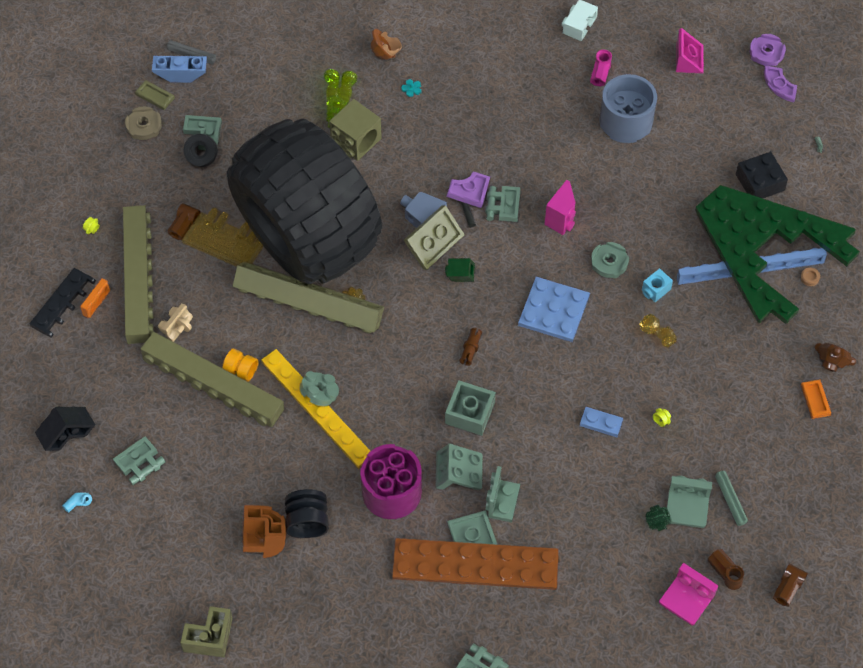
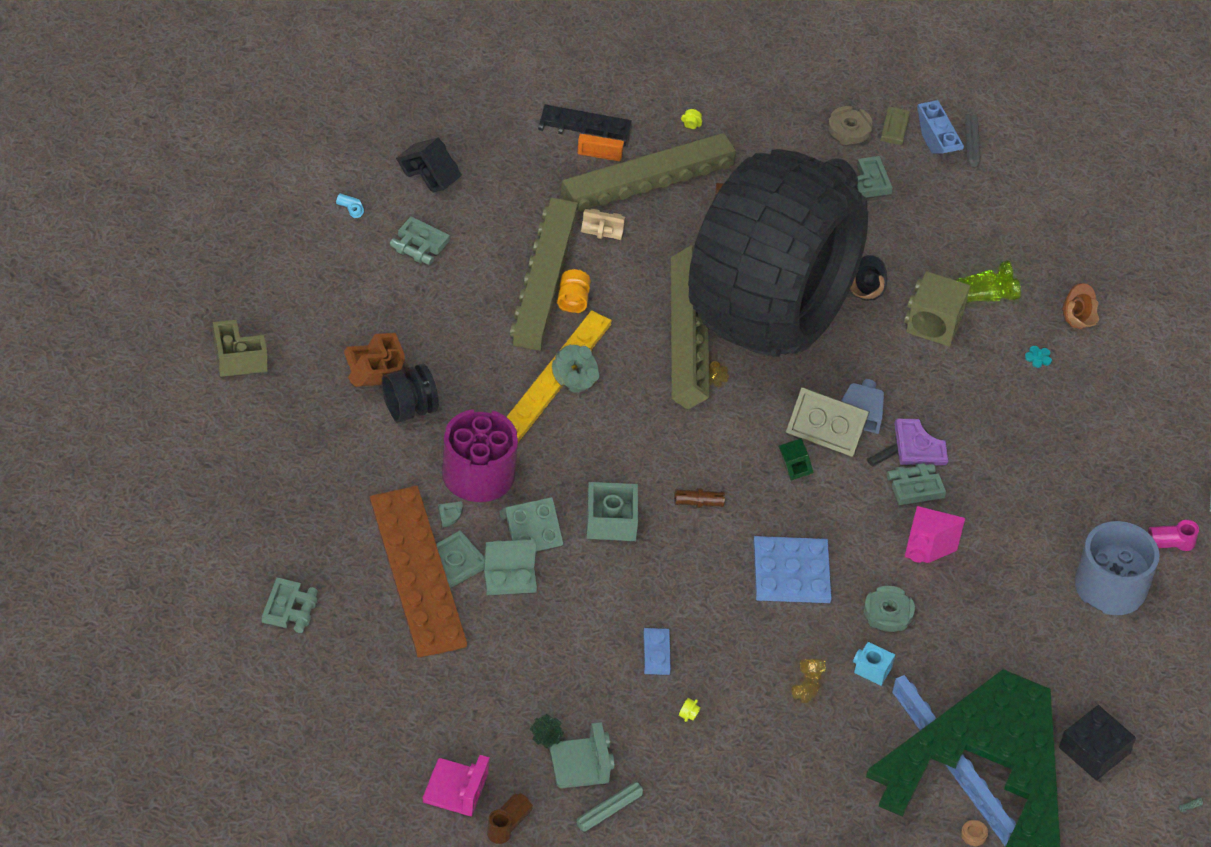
camera: 65 degrees right, 10 degrees down
(426, 524) = (449, 512): none -> sand green tile

